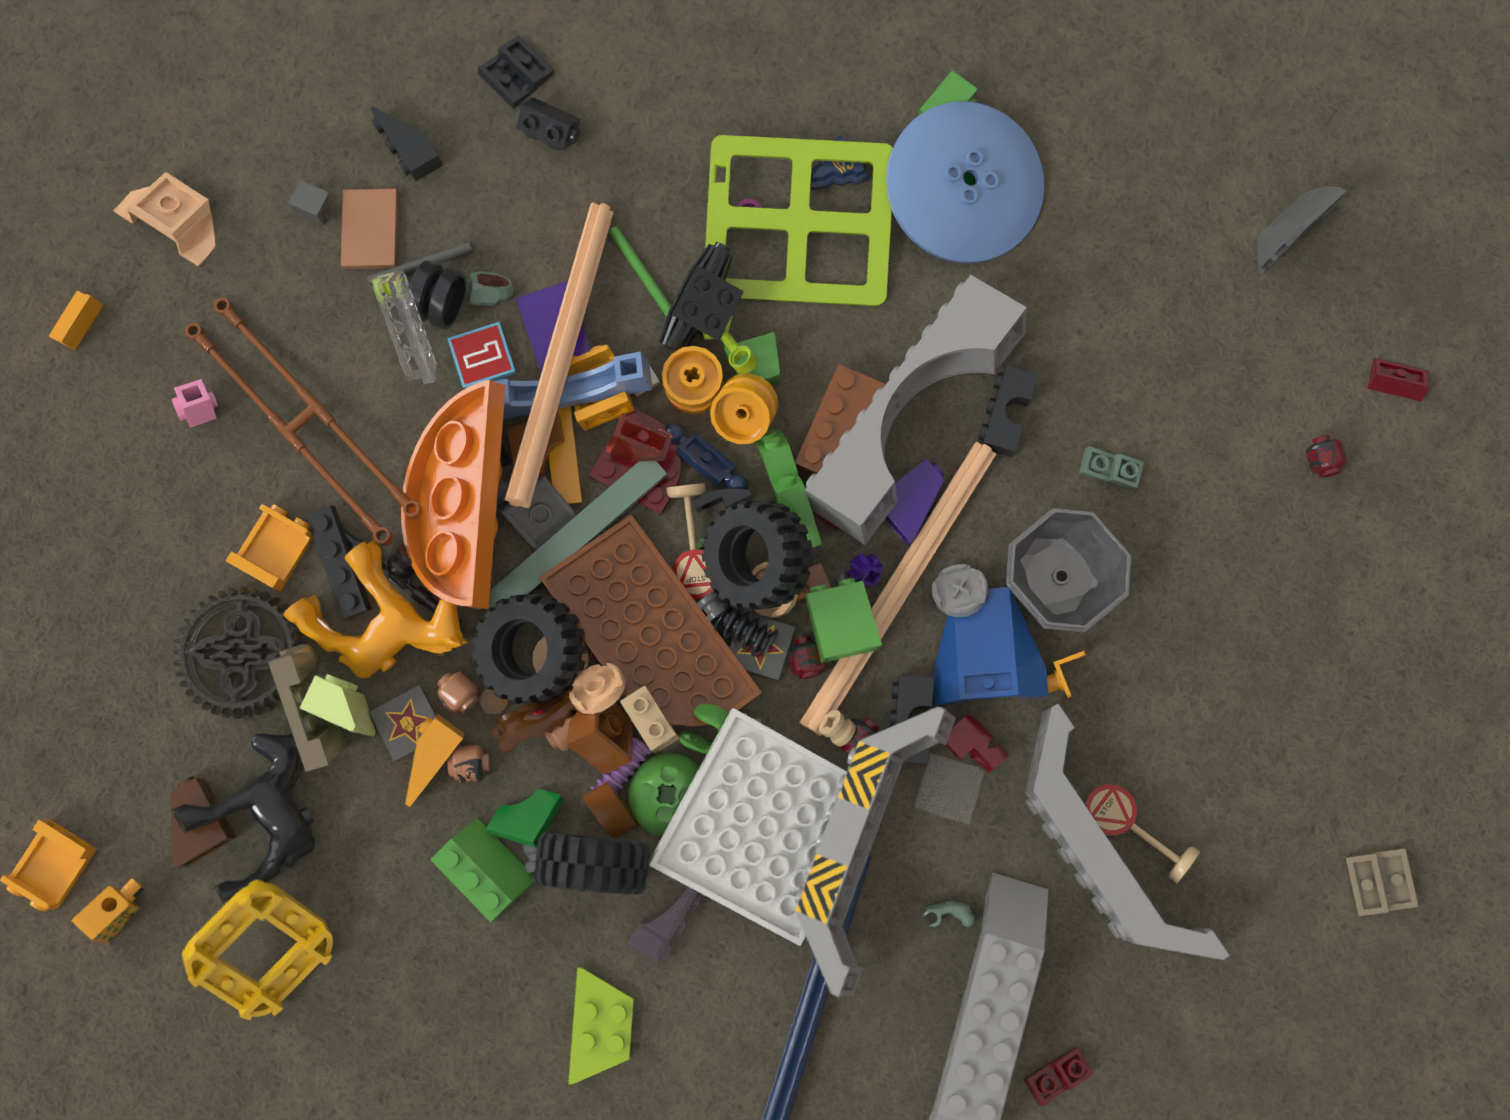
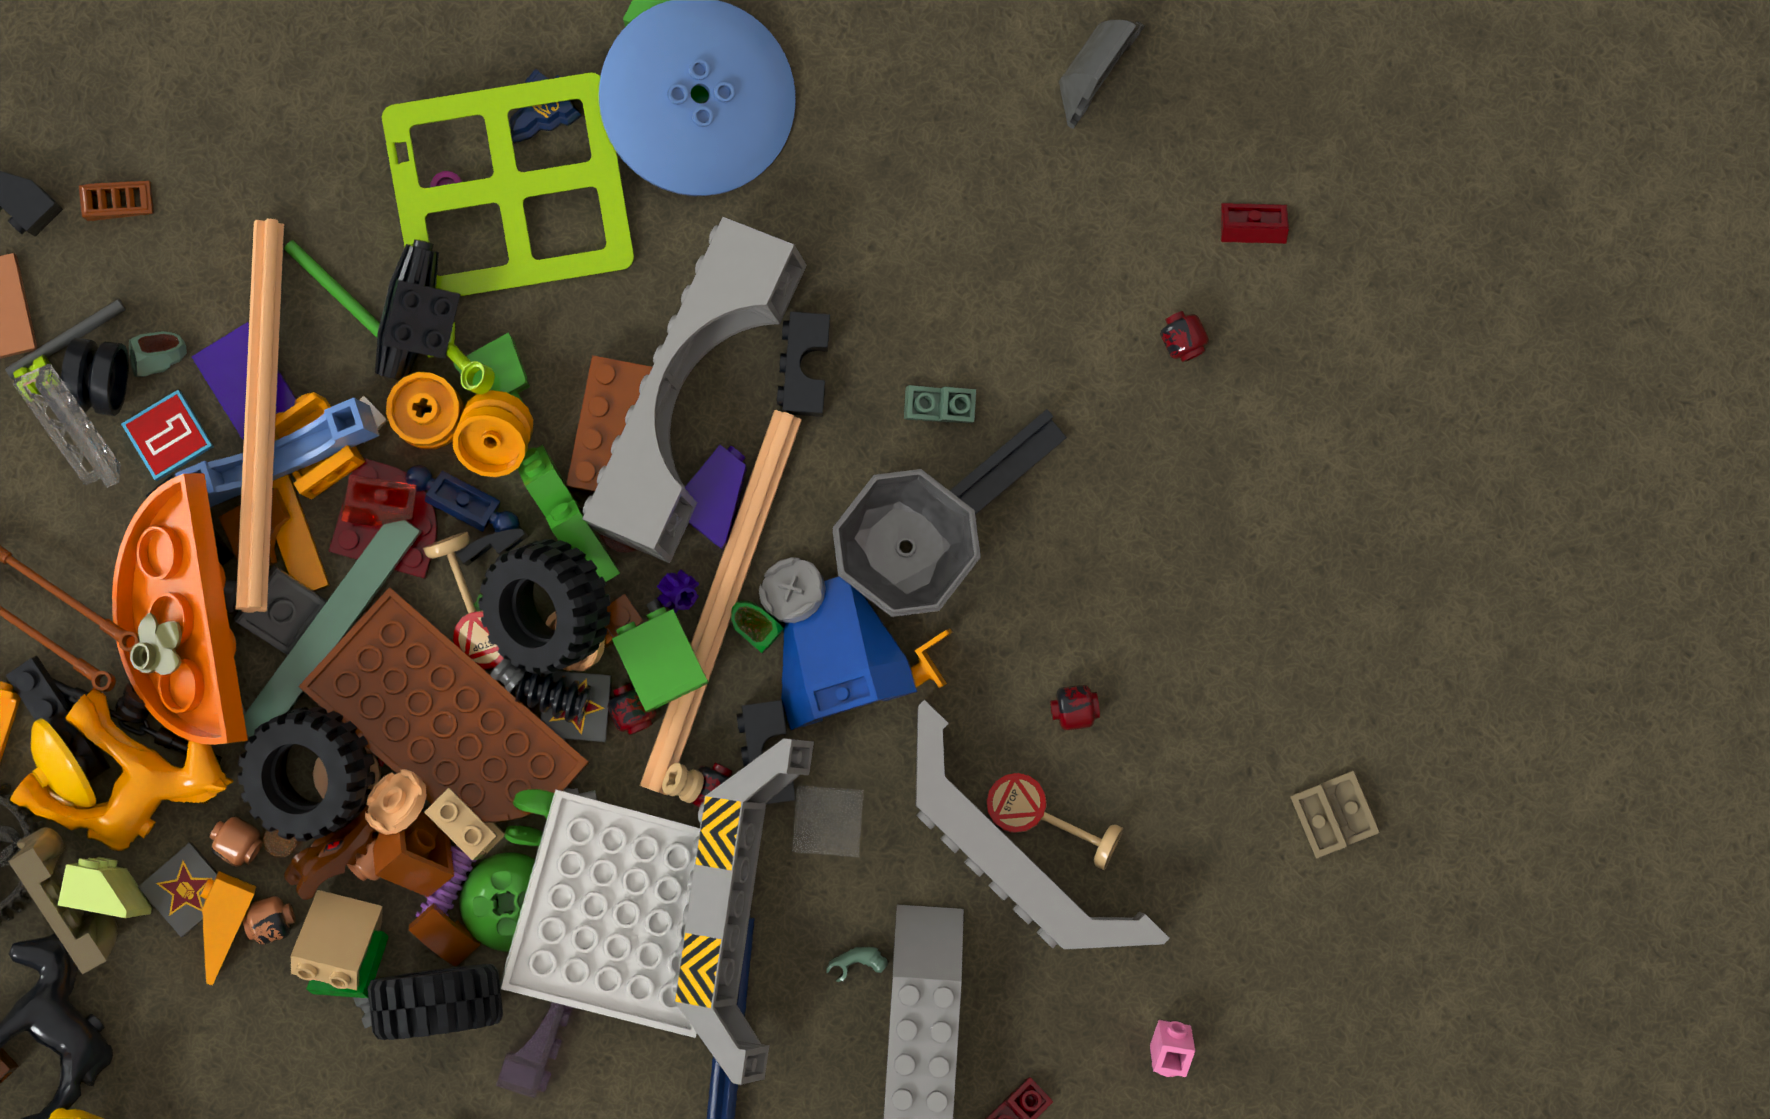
camera: 20 degrees left, 5 degrees up
(329, 596) = (58, 766): none -> yellow dish
(433, 517) = (157, 646): none -> olive plate
(483, 869) = (314, 1036): bright green slope -> none
(484, 175) = (91, 214): none -> dark orange slope
(515, 71) = (123, 72): black slope -> none
(520, 792) = (335, 939): none -> tan panel
(548, 124) = (179, 133): black brick -> none
(923, 612) = (755, 625): none -> rock
(971, 737) = (842, 757): dark red plate -> none
(1164, 524) = (1009, 462): none -> black fence
(1178, 740) = (1075, 707): none -> dark red head
(1207, 1052) = (1172, 1048): none -> bright pink brick

